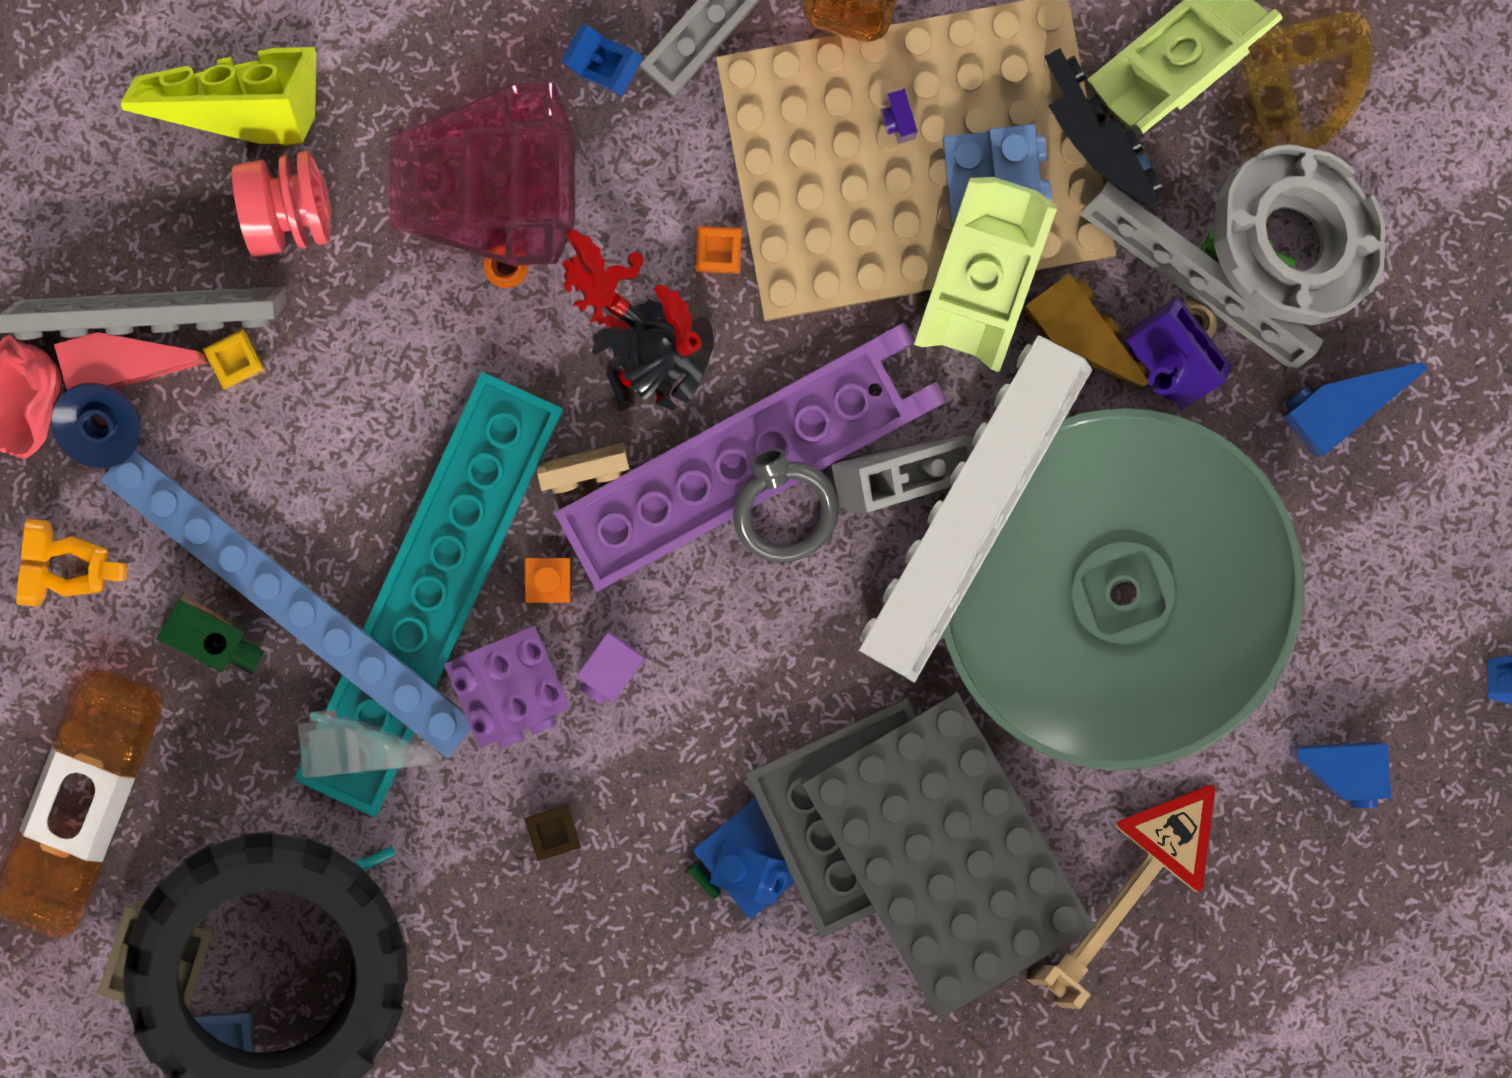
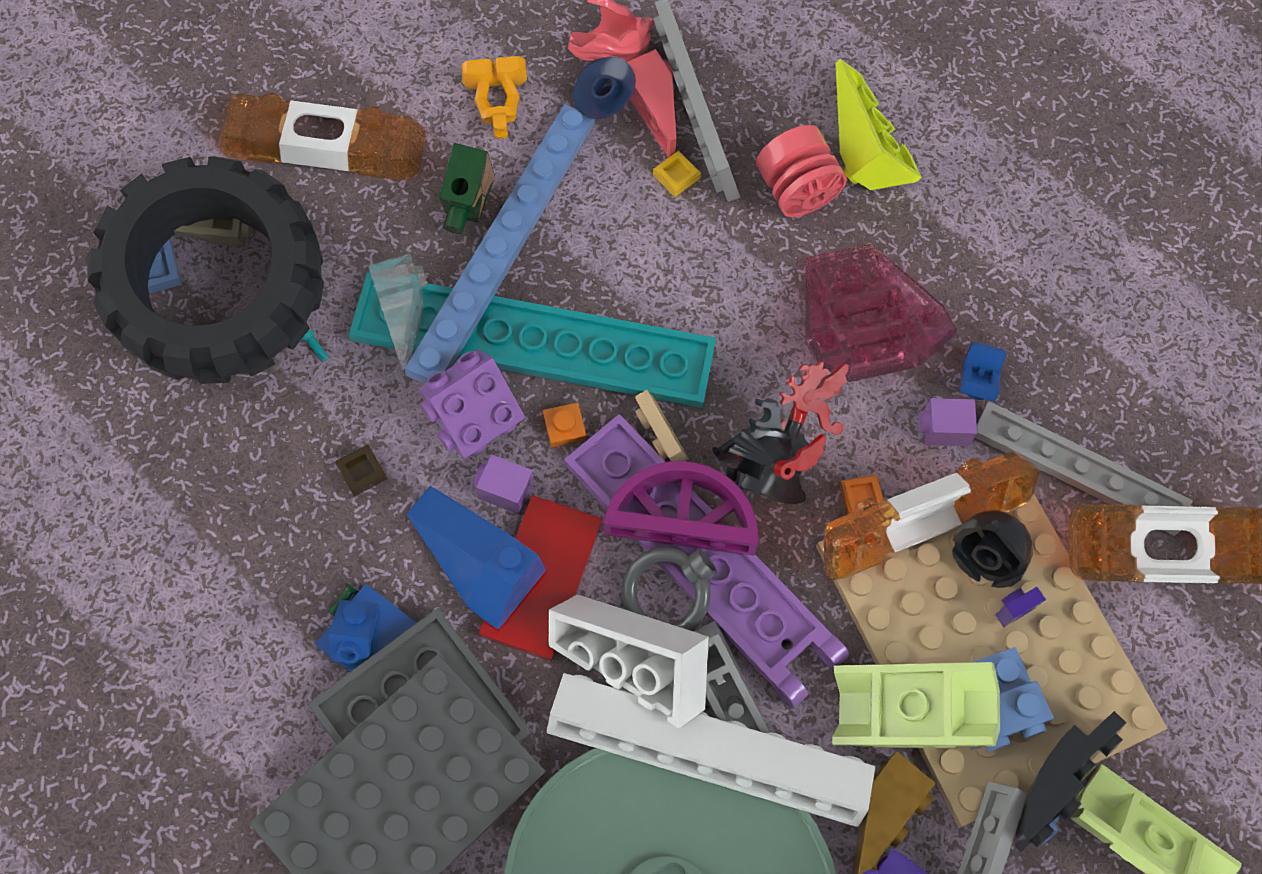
camera: 70 degrees right, 20 degrees down
(501, 280) = (793, 334): orange plate -> none
(654, 121) = (948, 422): none -> medium lavender brick
(698, 716) = (479, 558): none -> blue wedge
(728, 460) = (681, 531): none -> magenta window
(729, 648) = (564, 544): none -> red tile
(761, 126) = (925, 512): none -> clear orange piece
(826, 122) = (993, 547): none -> black cylinder
(854, 568) = (635, 652): none -> white wedge

